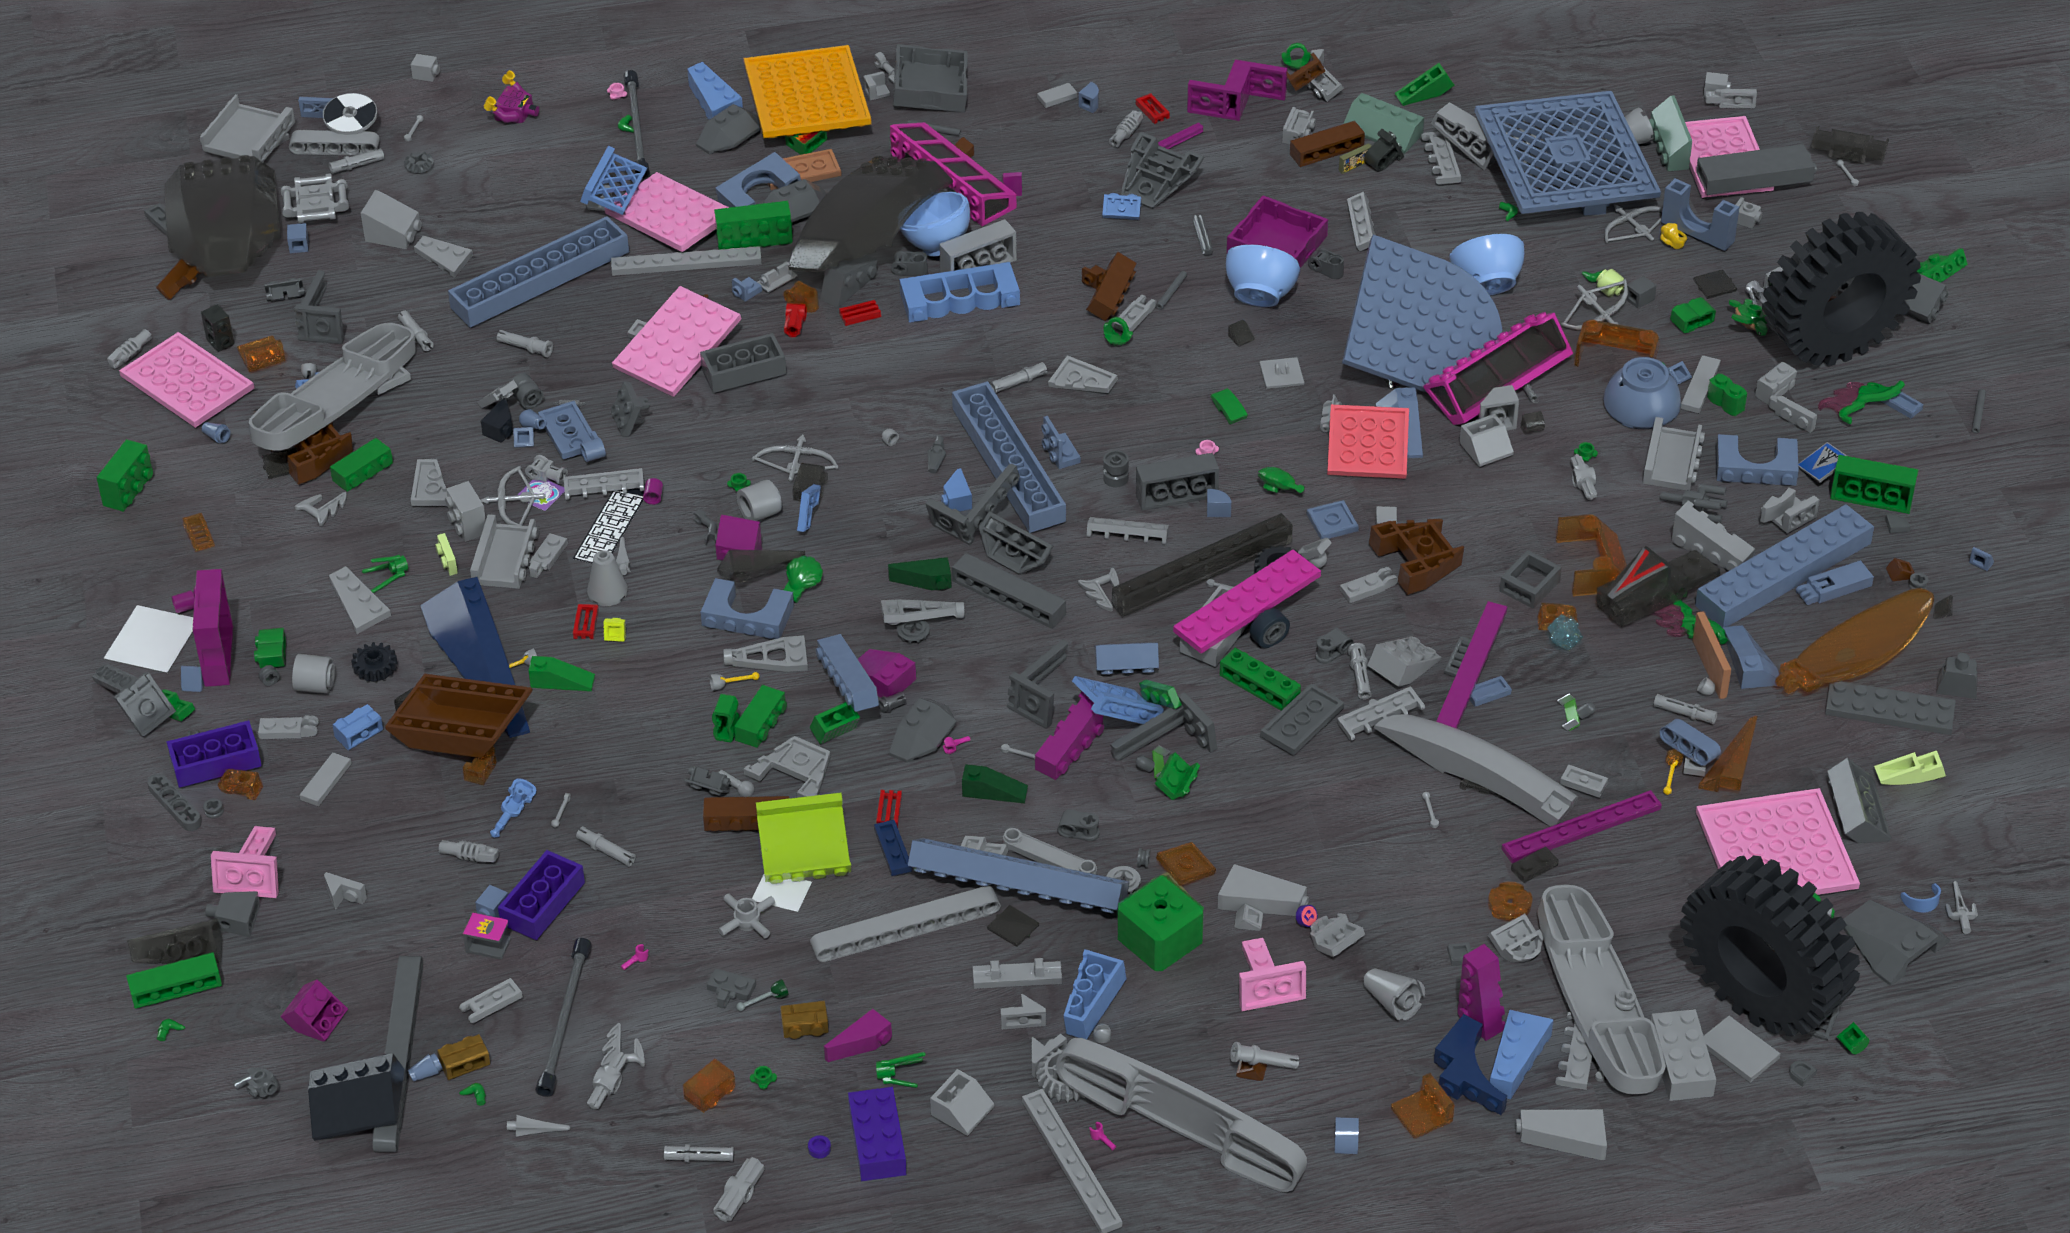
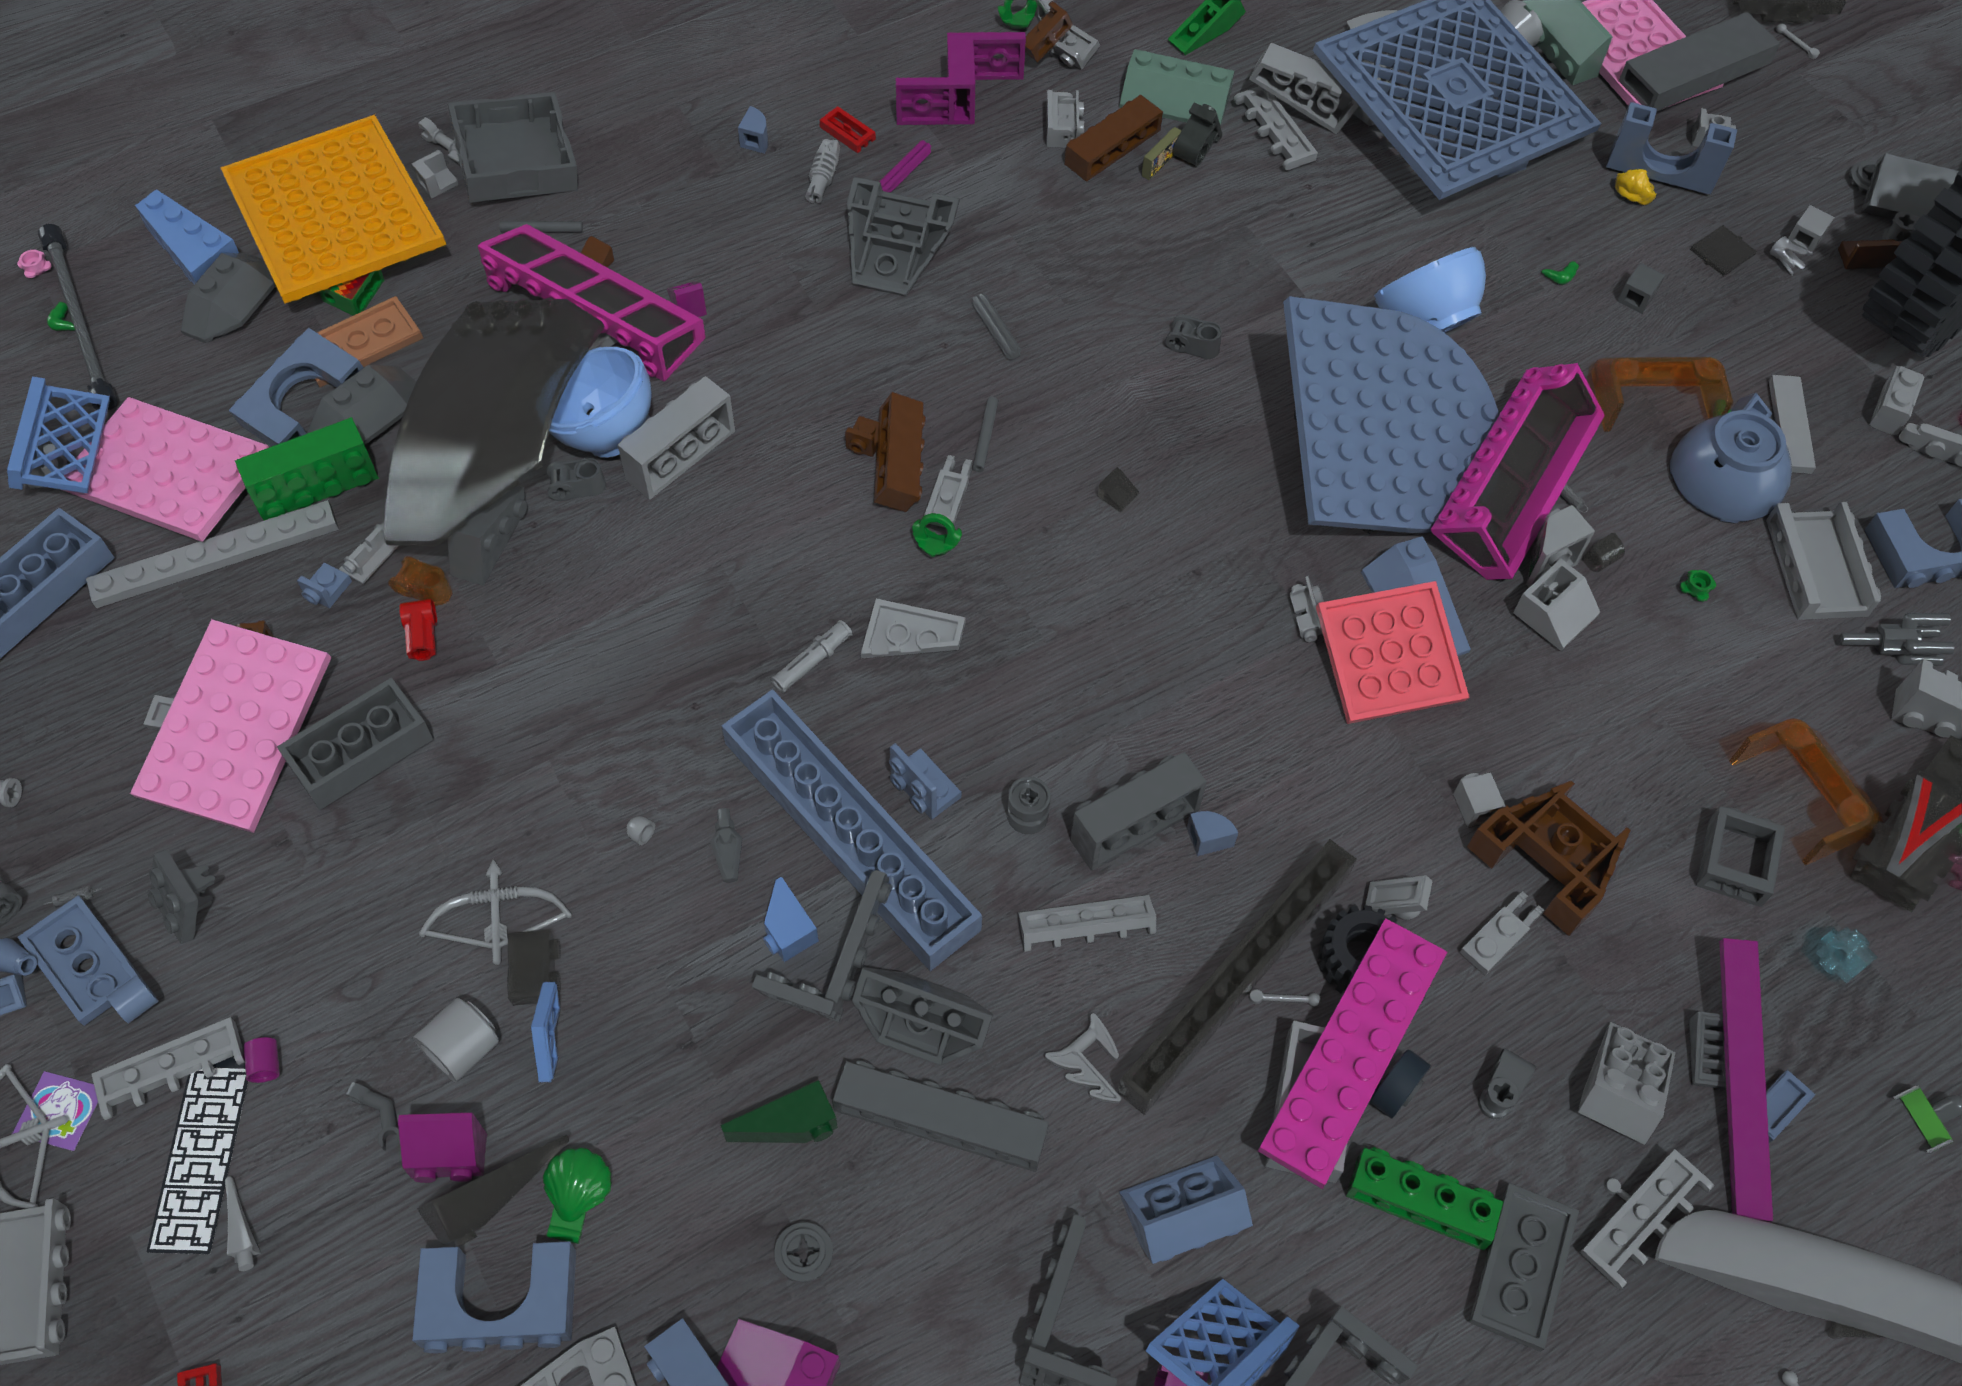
camera: 20 degrees left, 15 degrees up
(545, 470) = (55, 1063): light grey connector -> none
(547, 554) = (95, 1261): light grey hinge -> none
(606, 581) = (221, 1311): light grey cone -> none
(738, 481) = (402, 990): green plate -> none
(860, 312) = (519, 585): red tile -> none
(894, 614) = (759, 1227): light grey plate -> none
(919, 308) = (614, 560): medium blue fence -> none
(1057, 95) = (704, 135): light grey tile -> none
(1121, 206) = (863, 304): medium blue bracket -> none
(1159, 694) = (1288, 1305): green plate -> none
(1207, 446) = (1150, 716): bright pink plate -> none
(1229, 405) = (1151, 627): green slope -> none
(1261, 274) = (1121, 388): light blue piece -> none
(1277, 479) = (1287, 760): green animal -> none
(1281, 373) = (1202, 546): light grey piece -> none
(1282, 228) = (1106, 308): magenta tile -> none
(1332, 520) = (1392, 813): sand blue tile -> none
(1359, 665) = (1563, 1112): light grey pin -> none
(1361, 220) = (1212, 256): light grey hinge -> none
(1510, 208) = (1402, 188): green animal -> none
(1549, 612) = (1811, 922): clear orange leg -> none
(1583, 477) = (1721, 634): light grey axle -> none
(1590, 299) = (1585, 317): light grey piece -> none
(1607, 278) = (1594, 282): yellowish green head -> none
(1642, 230) = (1584, 183): light grey piece -> none
(1693, 315) = (1727, 309): green brick -> none
(1727, 394) = (1844, 436): green brick -> none
(1750, 316) = (1809, 295): green animal -> none

